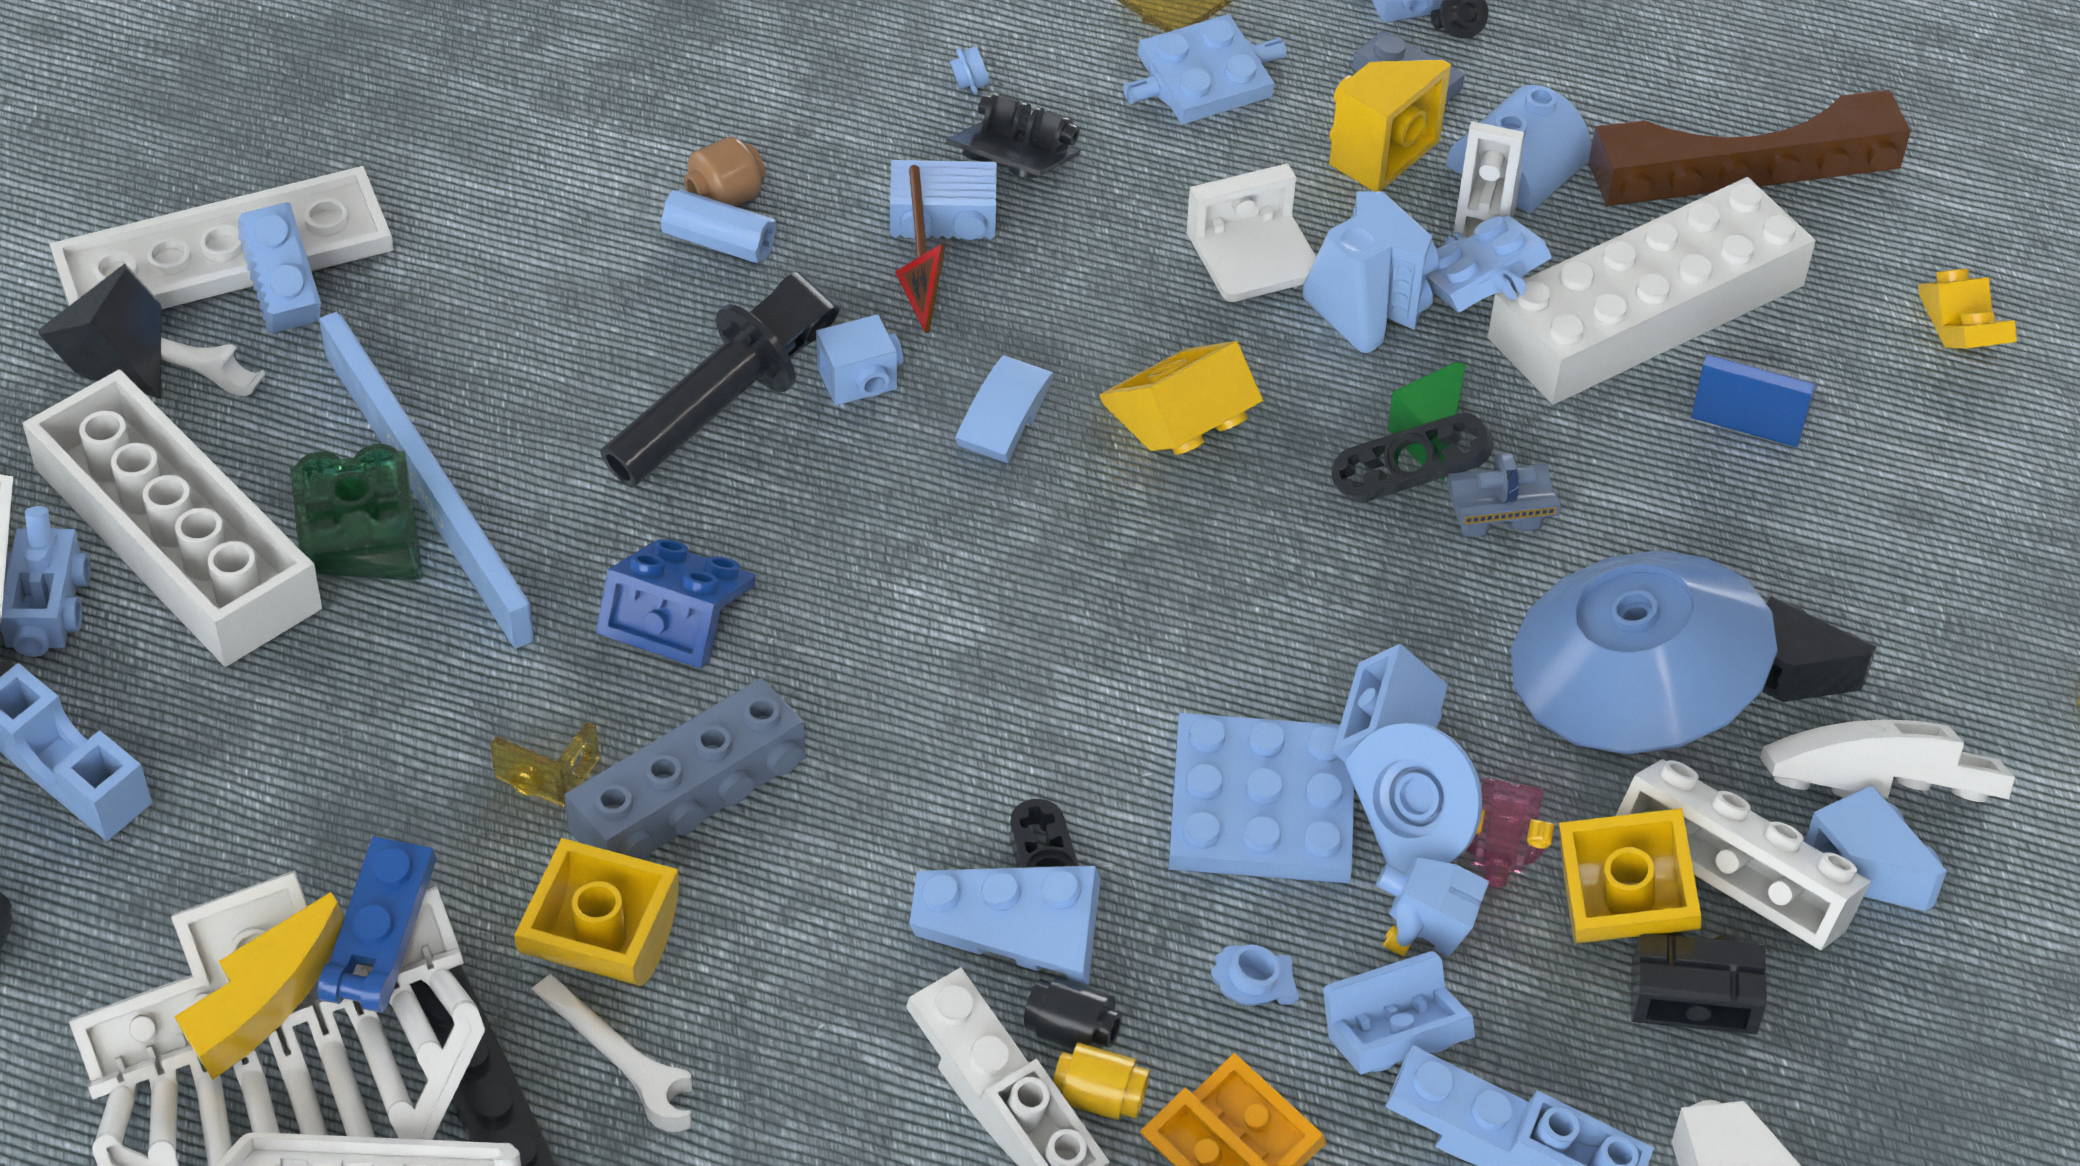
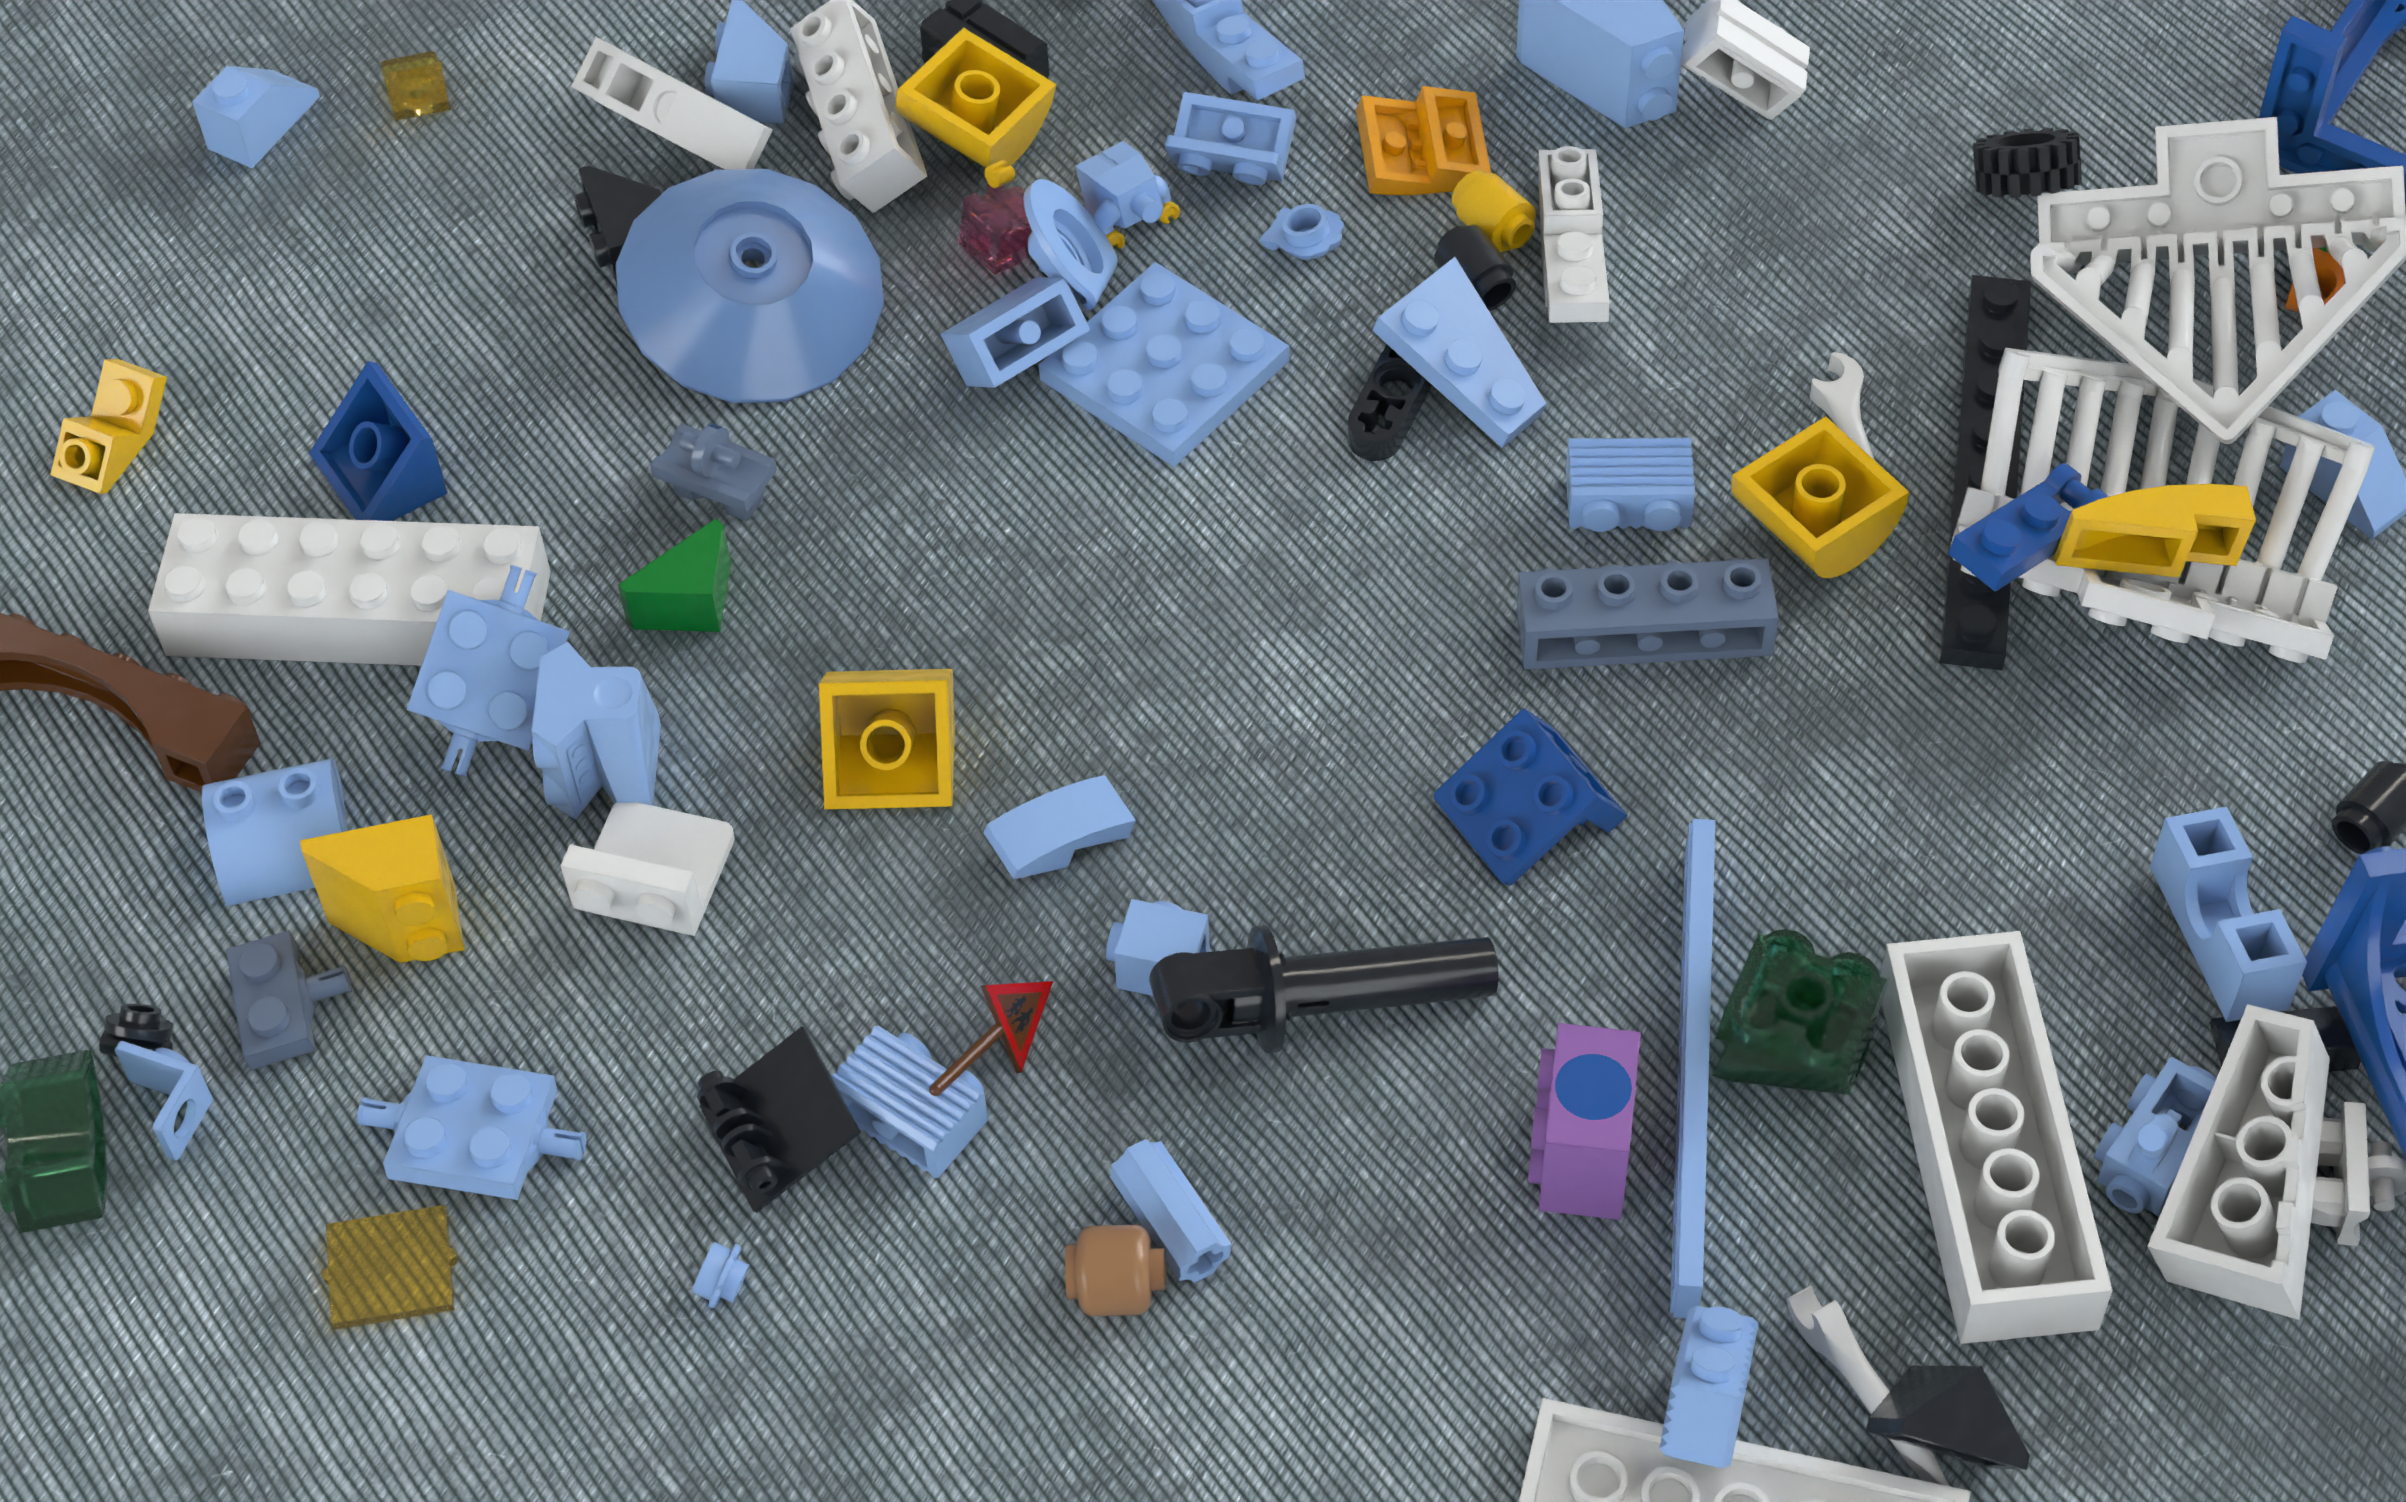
camera: 140 degrees left, 5 degrees up
(466, 372) = (1584, 1120): none -> medium lavender brick
(541, 776) = (1769, 673): clear yellow bracket -> none
(781, 881) = (1630, 483): none -> light blue brick
(1448, 433) = (712, 496): black beam -> none
(1489, 176) = (390, 740): white slope -> none

